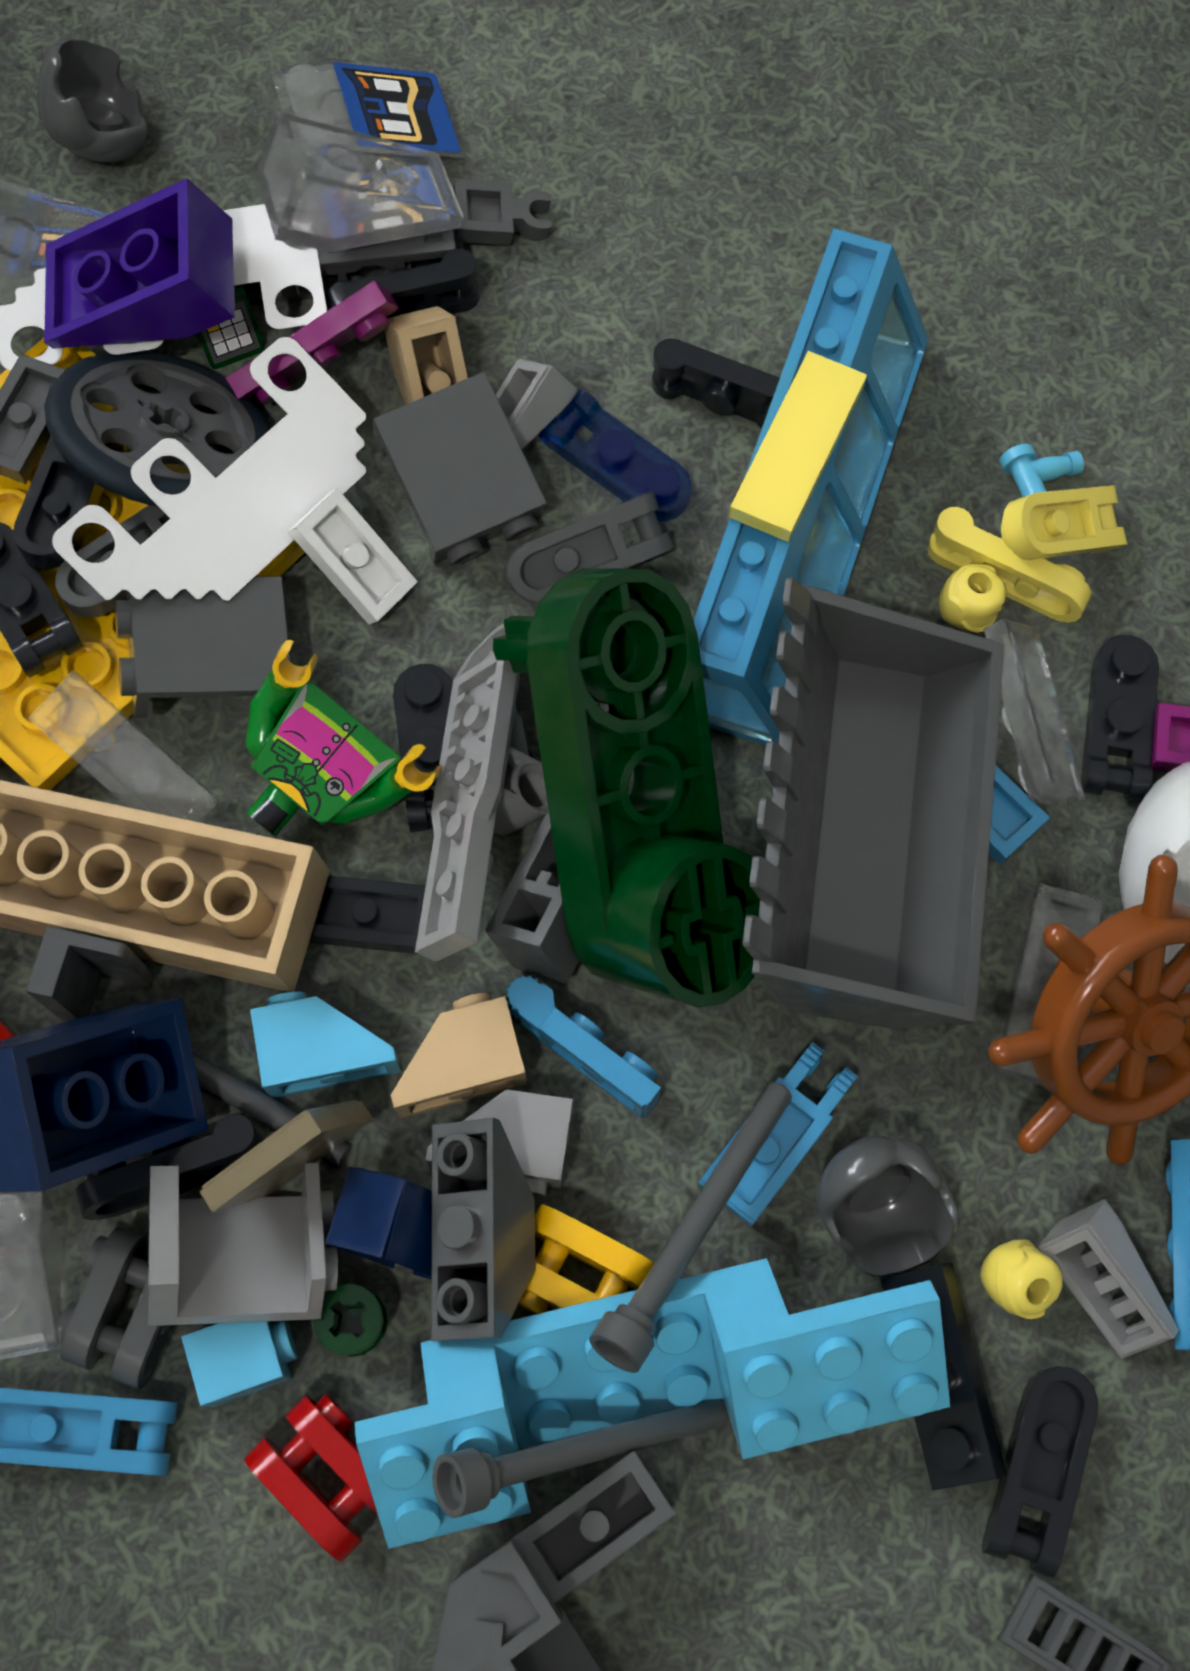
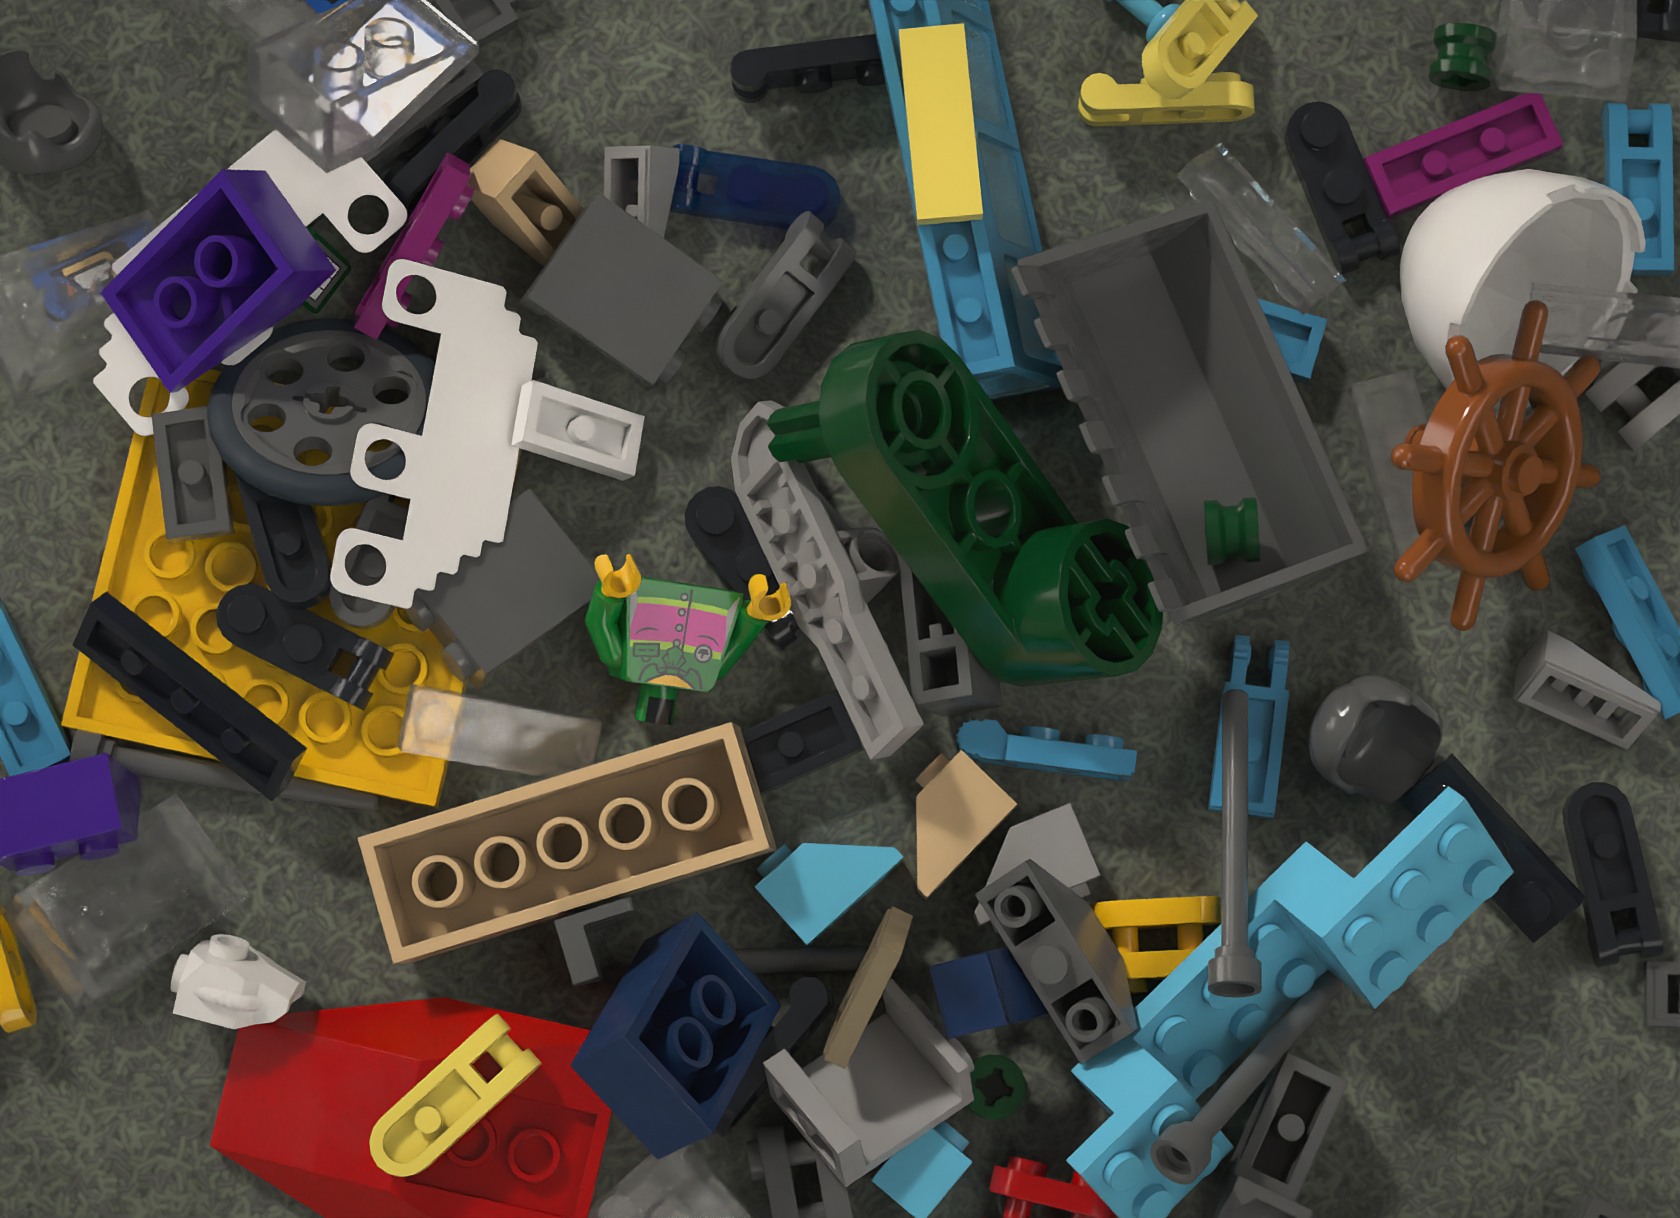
camera: 25 degrees left, 10 degrees up
(858, 938) = (1232, 531): none -> dark green wheel
(972, 597) = (1149, 149): light yellow piece -> none
(1021, 1279) = (1513, 733): light yellow piece -> none

